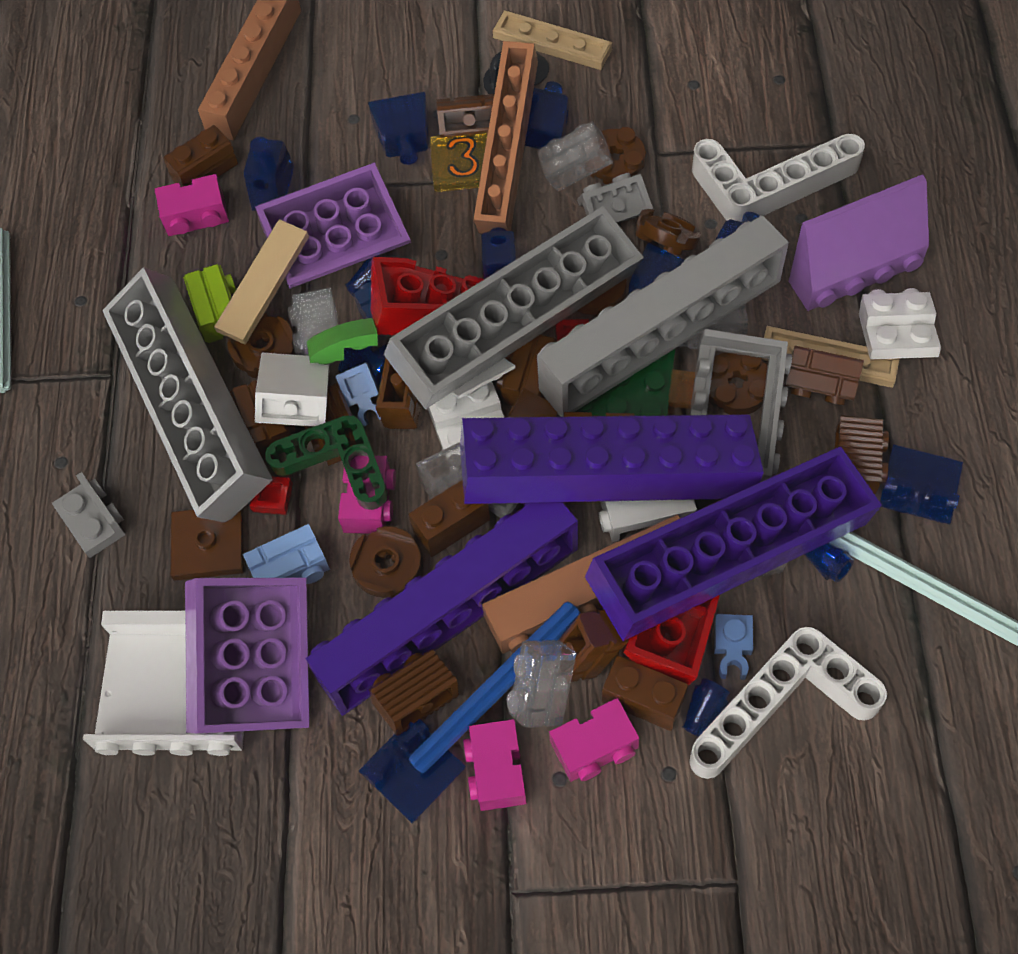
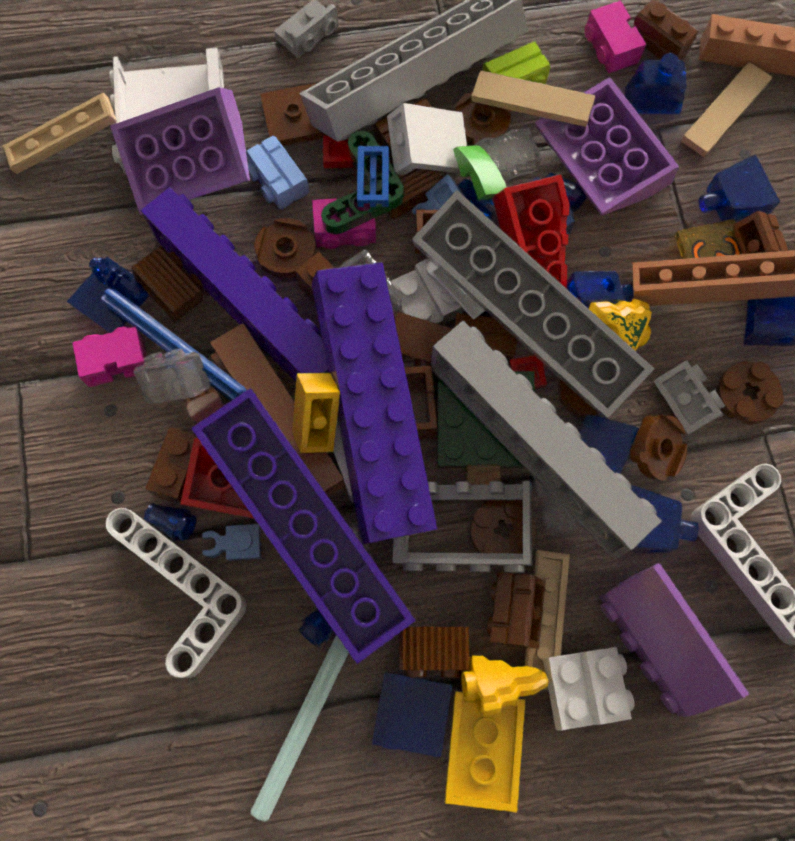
camera: 75 degrees right, 10 degrees up
(175, 820) = (59, 133): none -> tan tile
(301, 124) = (726, 109): none -> tan tile
(301, 443) = (373, 199): none -> blue tile
(530, 233) = (626, 320): none -> yellow rock
(575, 156) = (732, 350): clear brick -> none
(596, 742) = (129, 423): dark pink brick -> none
(610, 513) = (315, 412): none -> yellow brick
(898, 396) = (498, 684): none -> yellow rock
(957, 421) = (485, 756): none -> yellow plate

